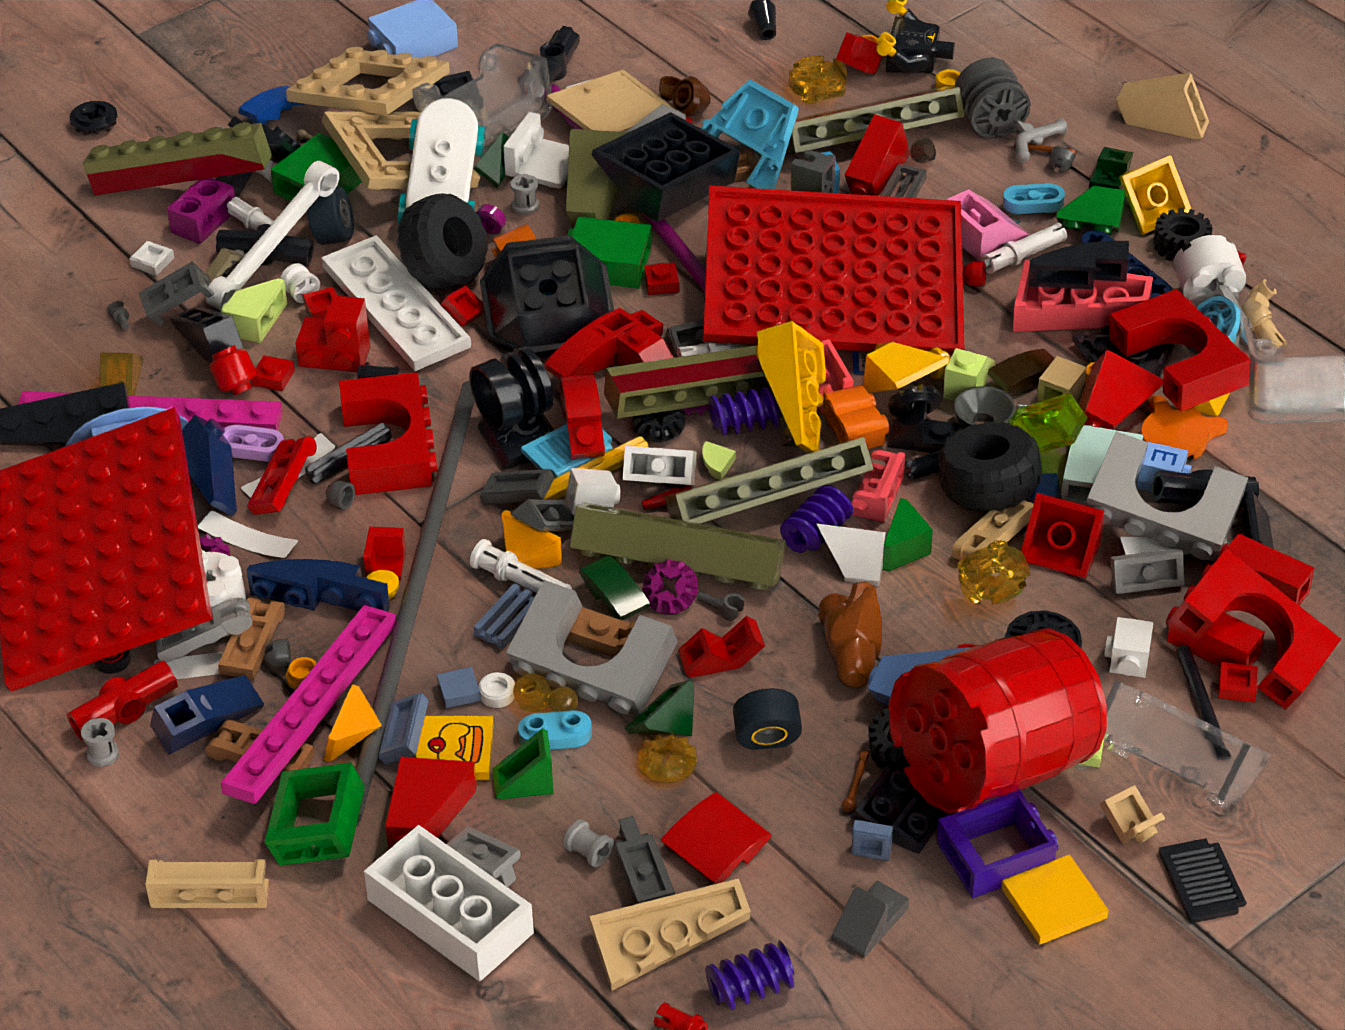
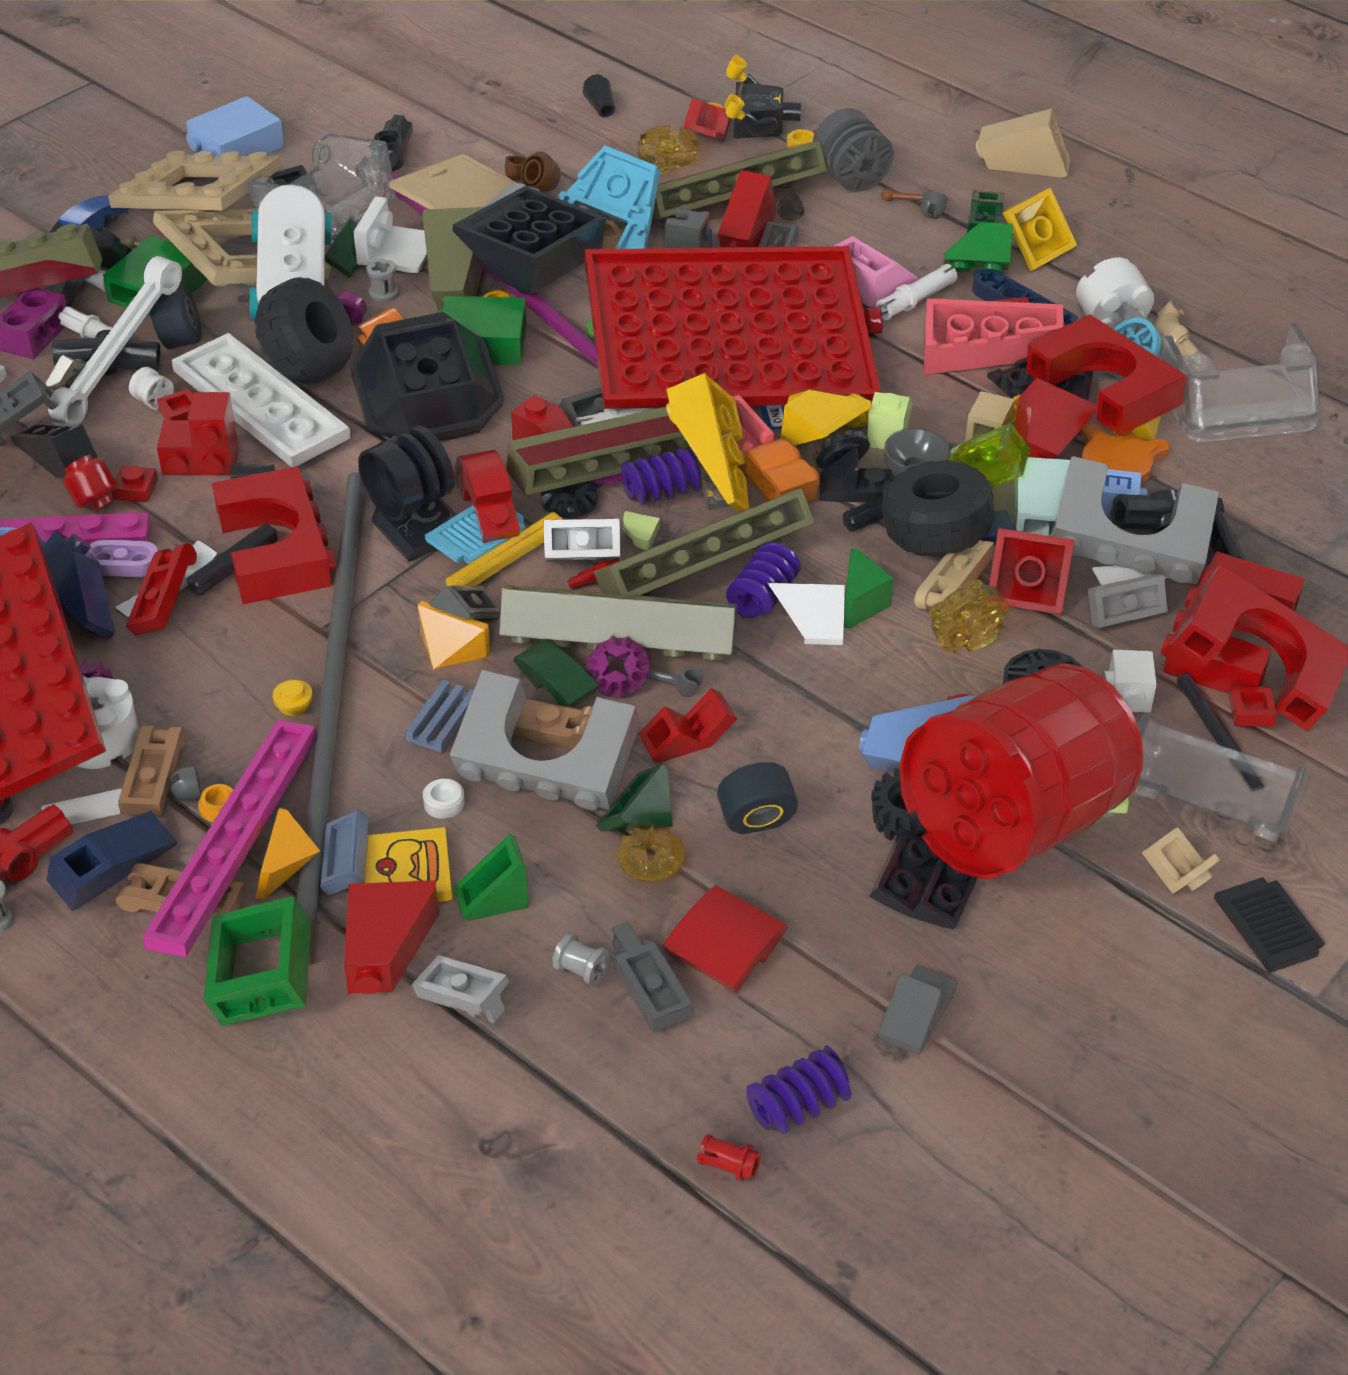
camera: 10 degrees left, 0 degrees up
(207, 884) = (140, 1058): tan container -> none
(227, 617) = (123, 748): light grey hinge -> none
(246, 537) = (129, 660): white sticker -> none
(256, 308) = (108, 417): yellowish green slope -> none
(309, 581) = (211, 700): dark blue slope -> none
(340, 494) = (230, 603): dark grey hinge -> none
(385, 550) = (291, 657): red panel -> none
(449, 902) = (433, 1046): white brick -> none
(458, 687) = (399, 800): sand blue tile -> none
(463, 306) = (335, 396): red plate -> none
(507, 567) = (432, 663): white pin -> none
(516, 486) = (427, 576): dark grey tile -> none
(560, 699) = (520, 802): clear yellow plate -> none
(564, 729) = (534, 832): medium azure plate -> none
(591, 487) = (511, 568): white brick -> none
(596, 343) = (488, 421): red slope -> none
(659, 930) = (681, 1051): tan wing -> none
(661, 278) = (543, 352): red plate -> none
(849, 804) = (864, 882): dark orange hinge -> none
(853, 632) = (830, 694): dark orange animal -> none
(872, 840) = (901, 919): sand blue tile -> none
(879, 486) = (822, 540): coral hinge -> none
(960, 827) = (1013, 933): dark purple window -> none
(1021, 370) = (944, 410): dark brown slope -> none
(1030, 134) = (895, 183): light grey piece -> none
(1033, 198) = (914, 244): medium azure plate -> none
(1054, 899) = (1116, 963): yellow tile -> none
(1080, 265) = (989, 297): black slope -> none
(1178, 230) = (1069, 263): black tyre -> none

